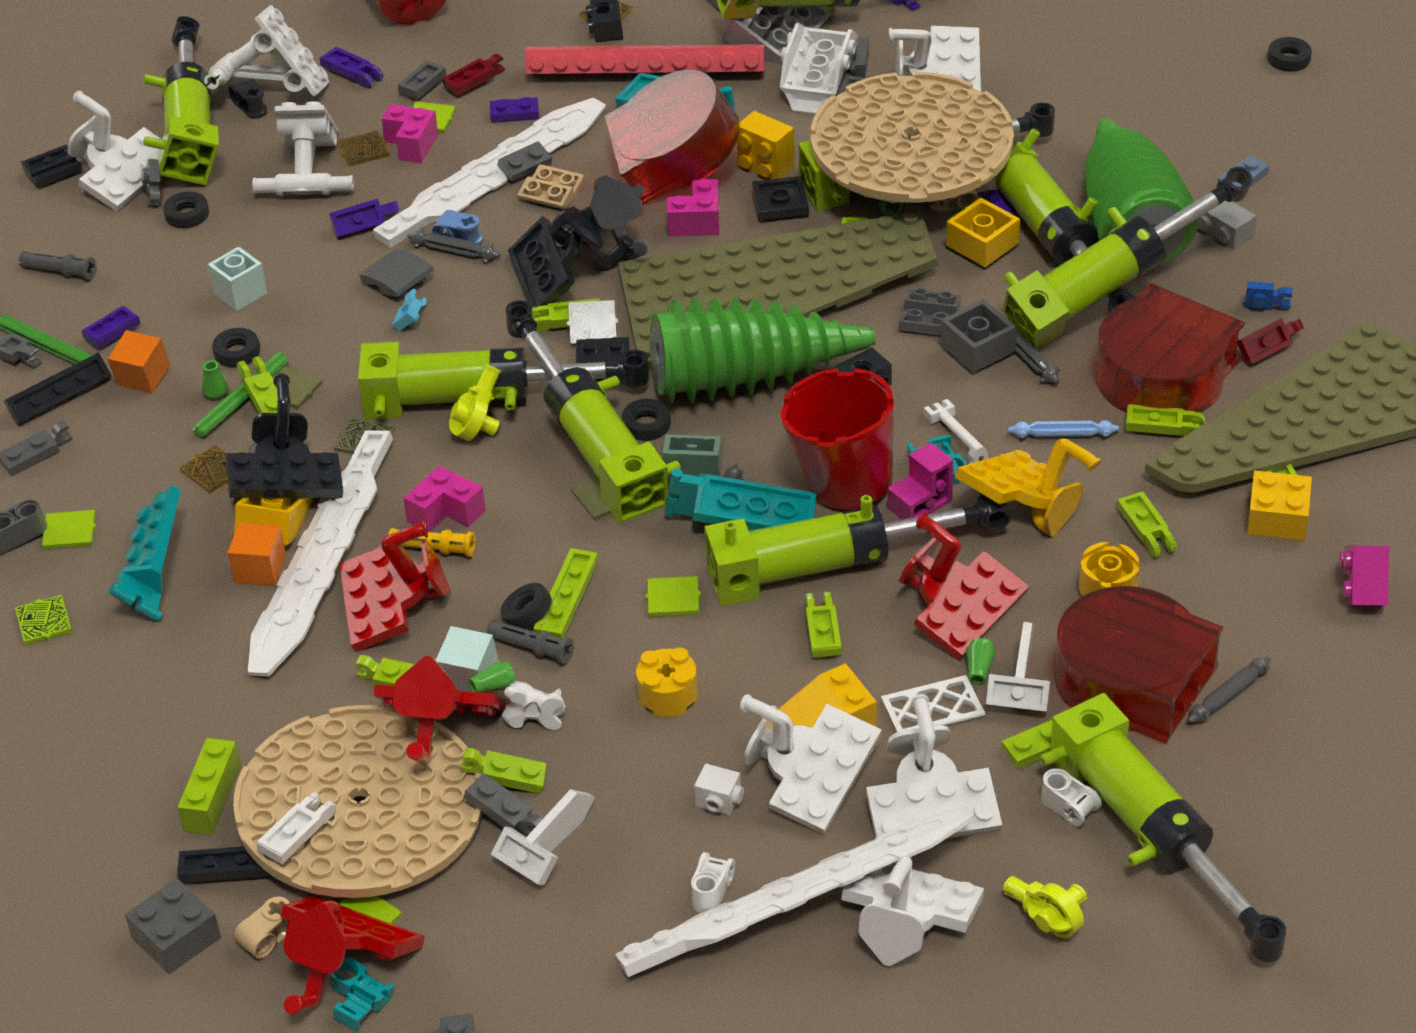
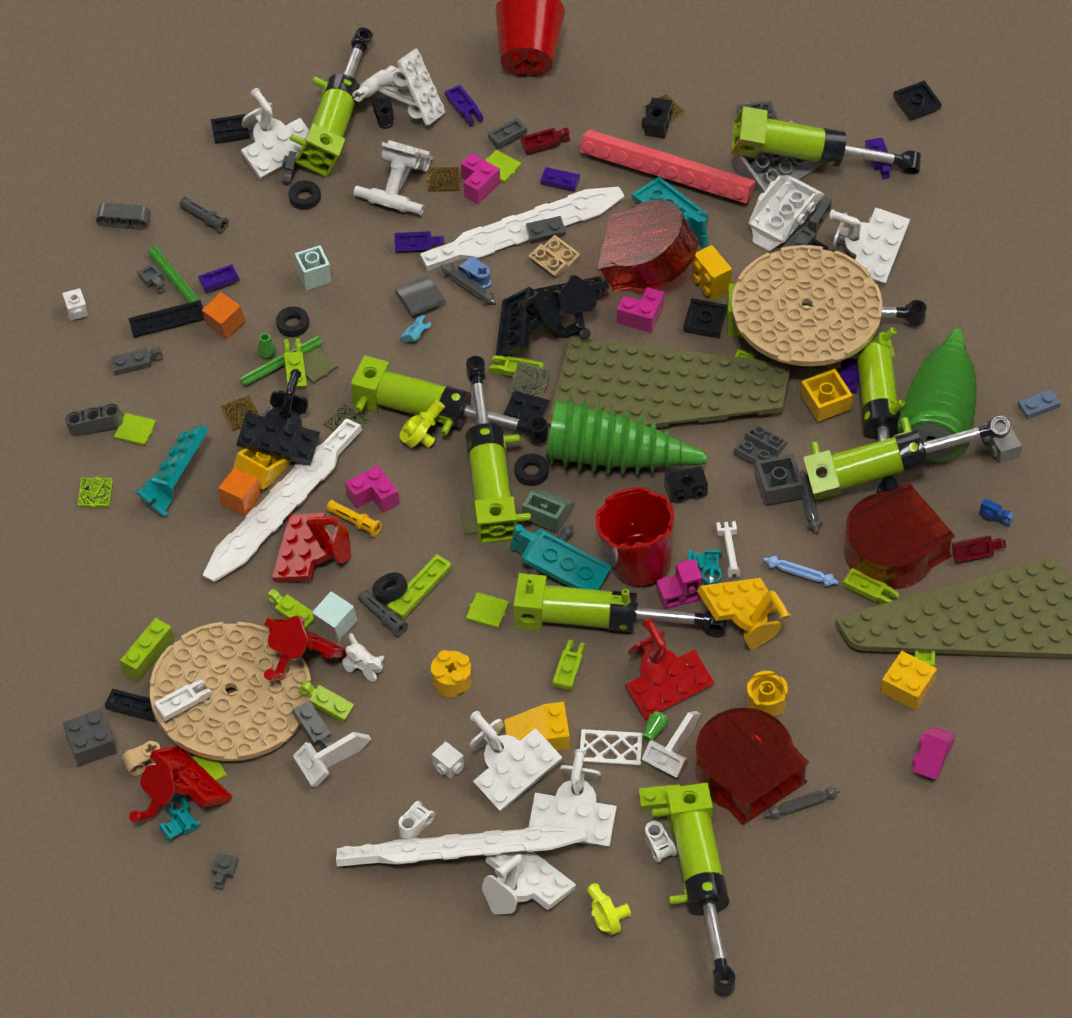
camera: 20 degrees right, 10 degrees up
(493, 678) = (345, 635): bright green cone -> none
(1146, 523) = (815, 661): lime hinge -> none

